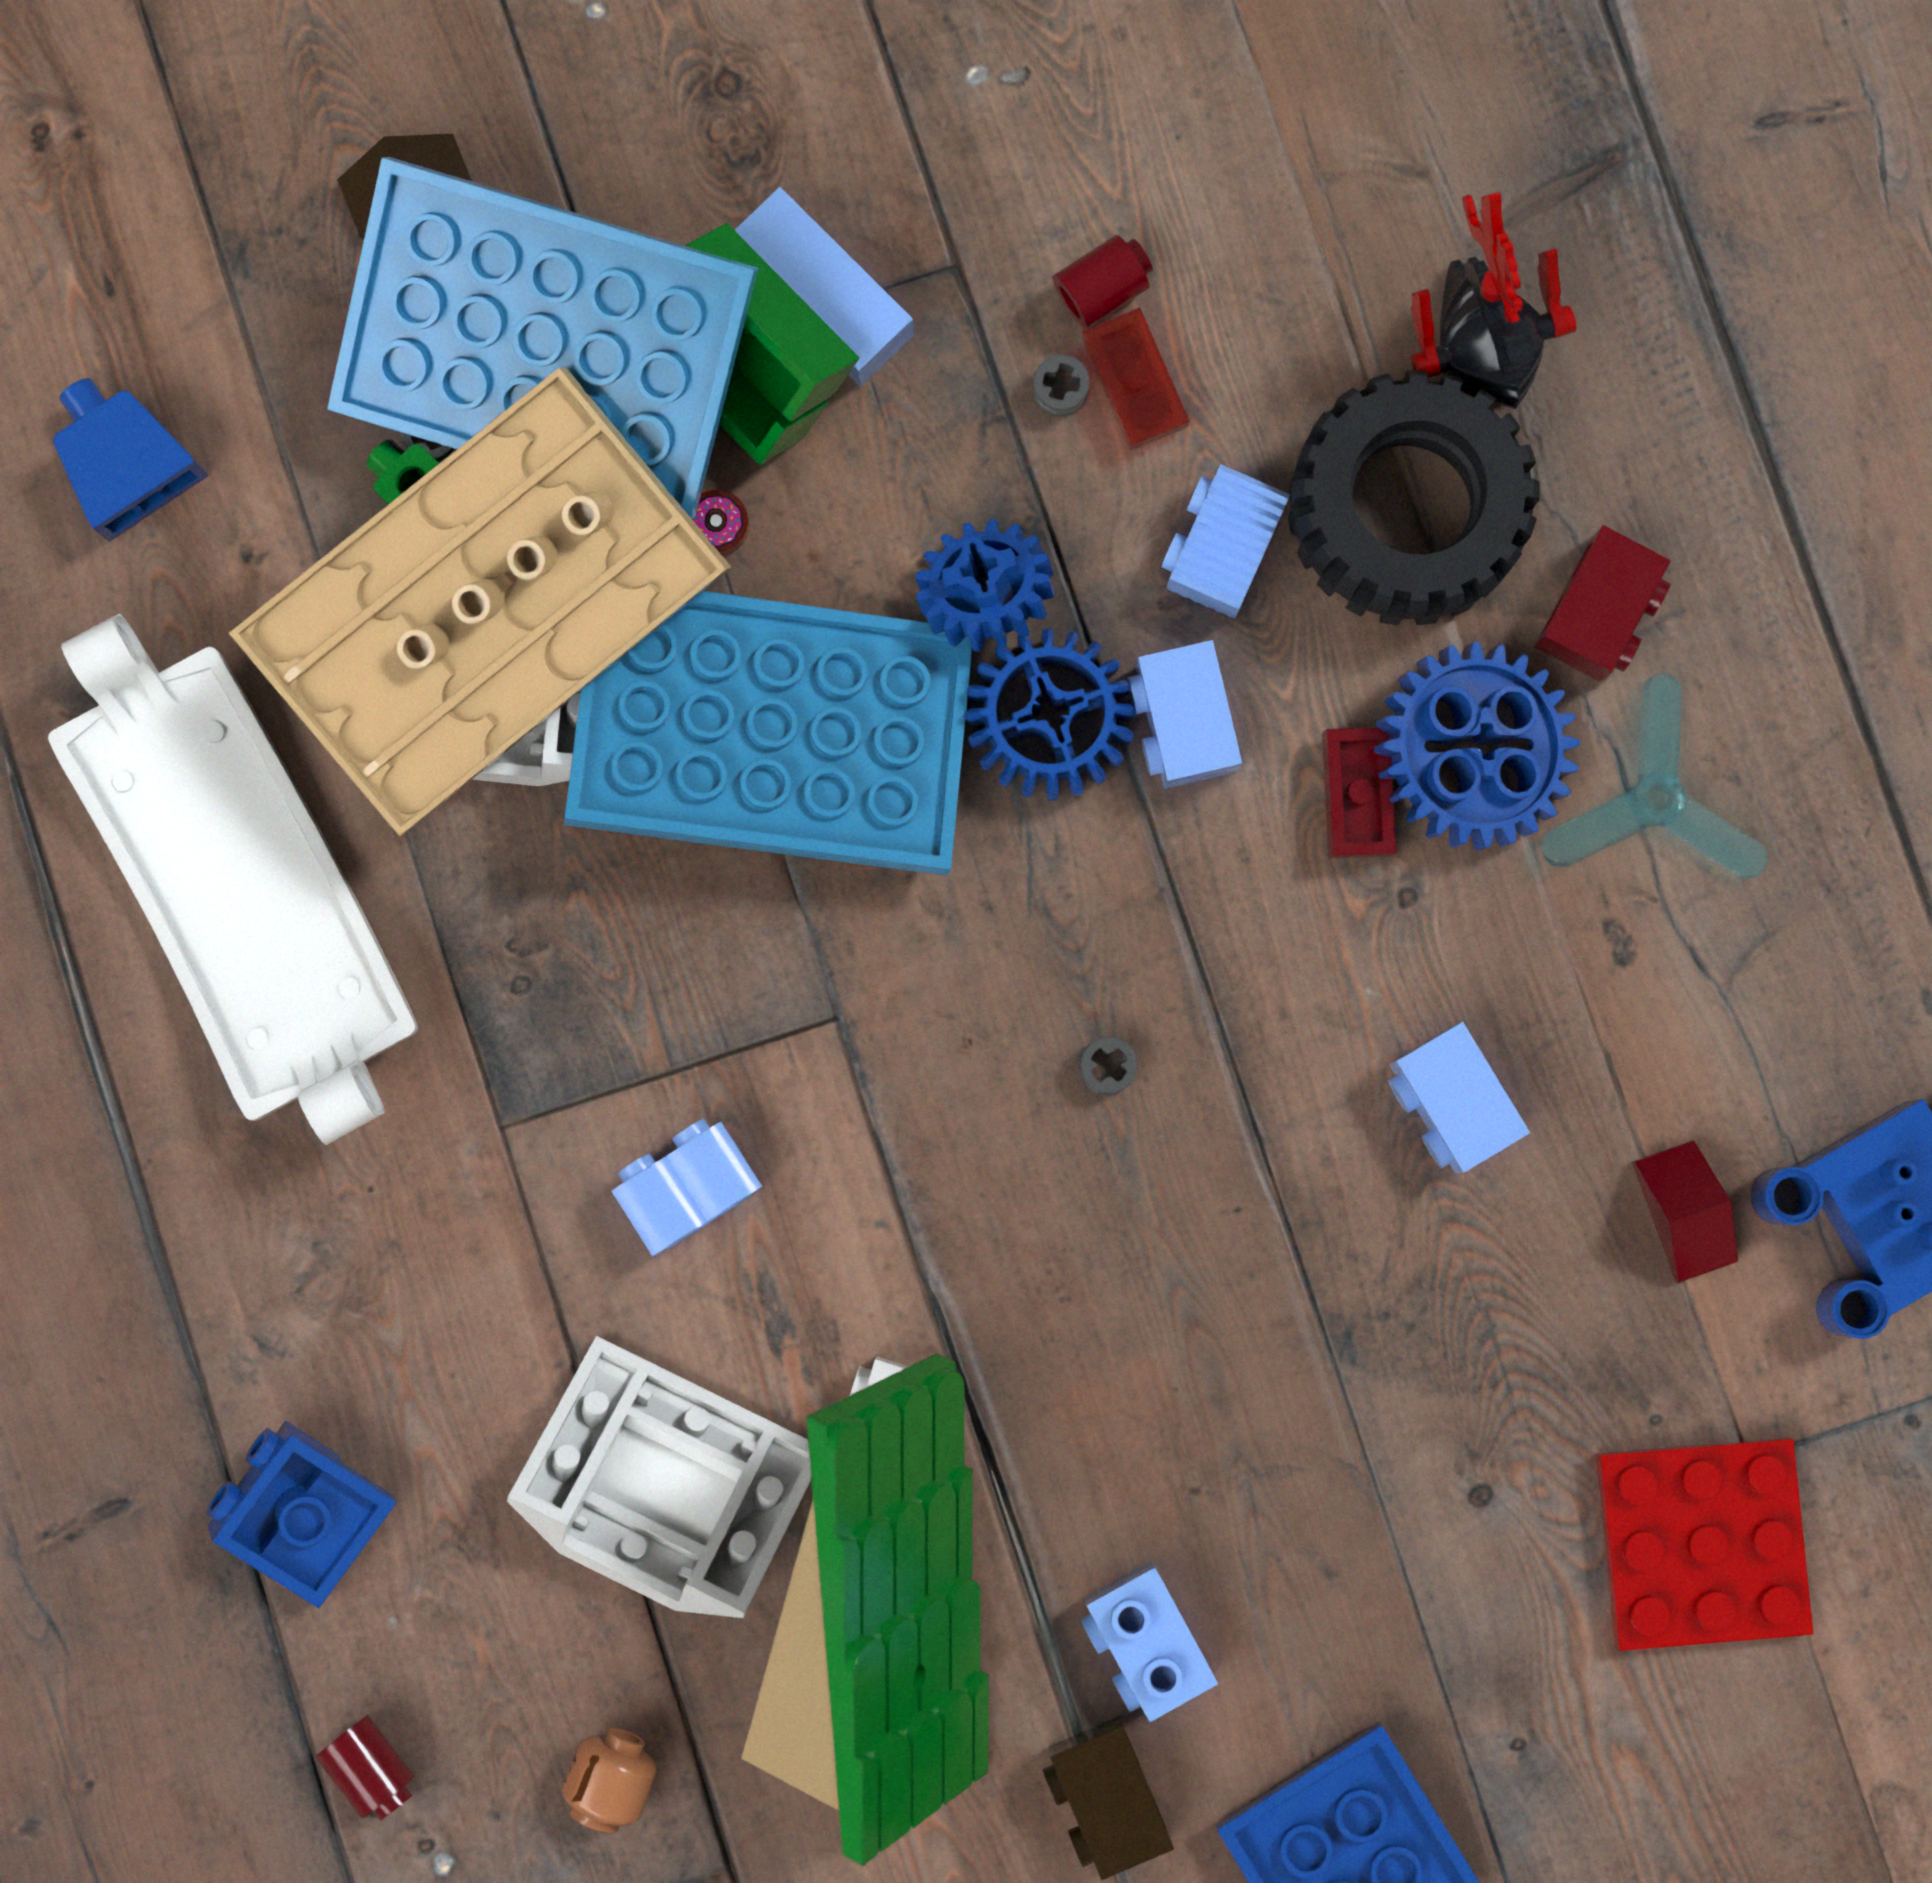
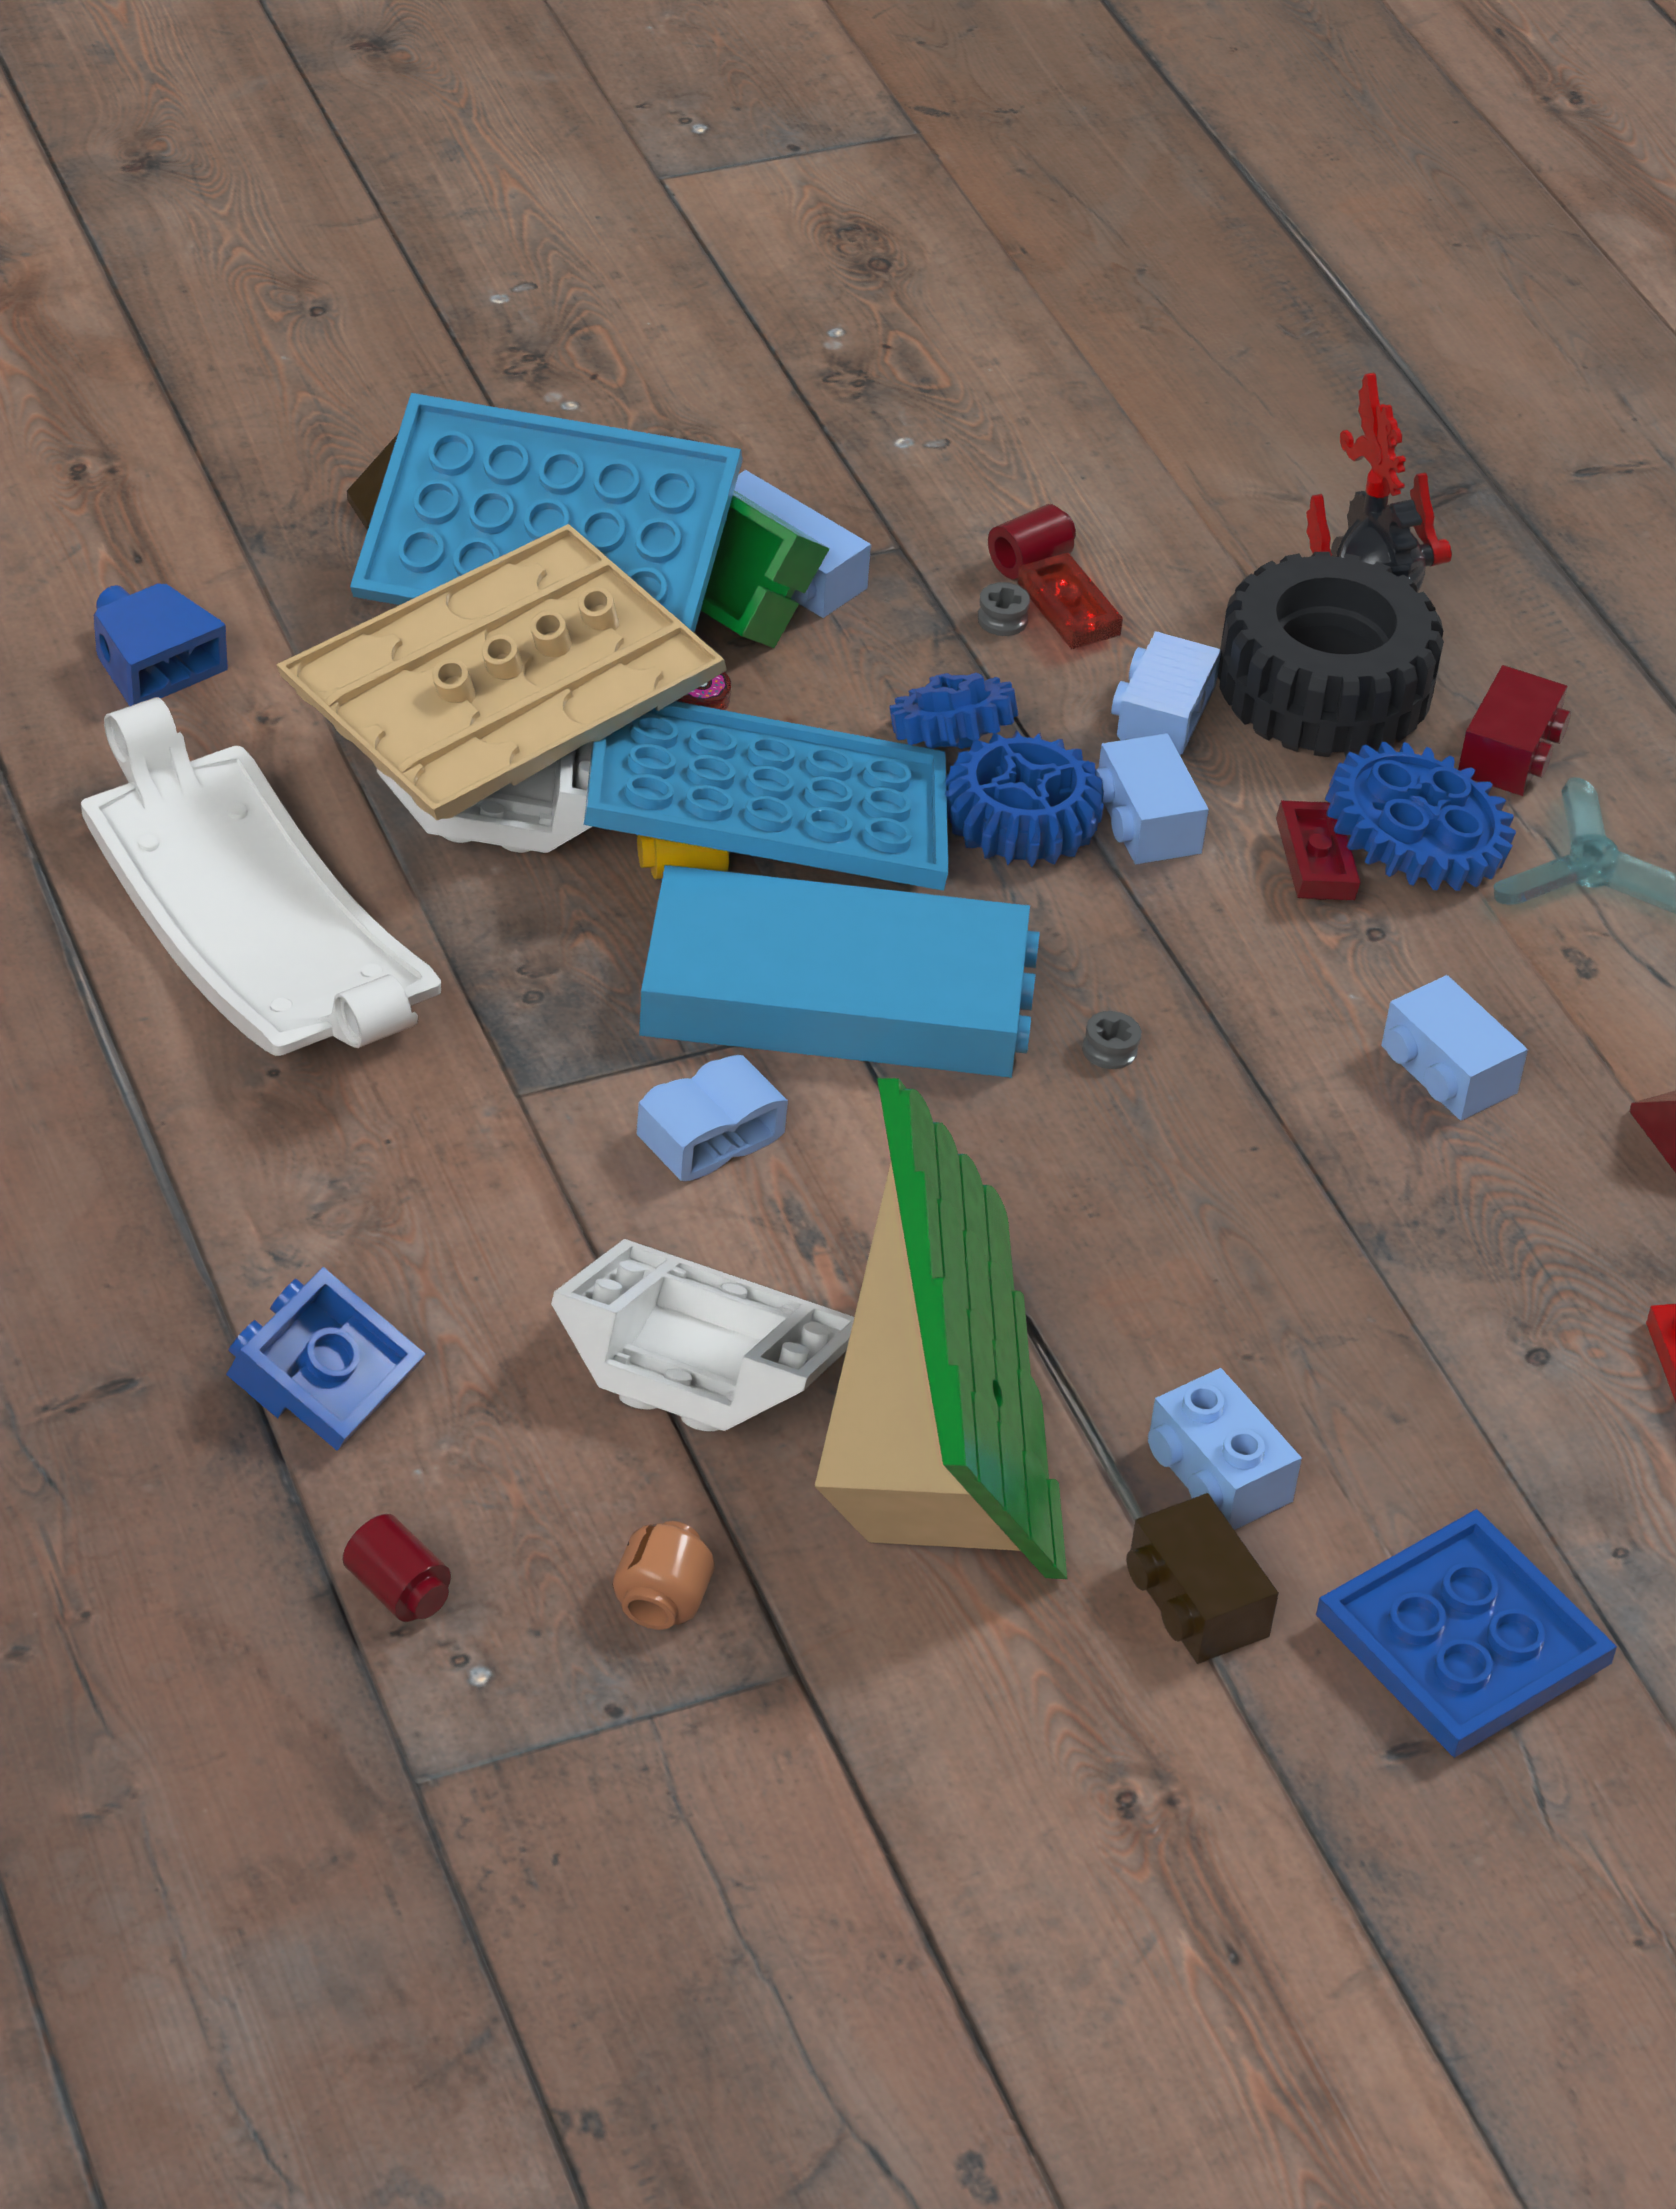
camera: 10 degrees left, 40 degrees down
(831, 978) = (839, 971): none -> dark azure brick

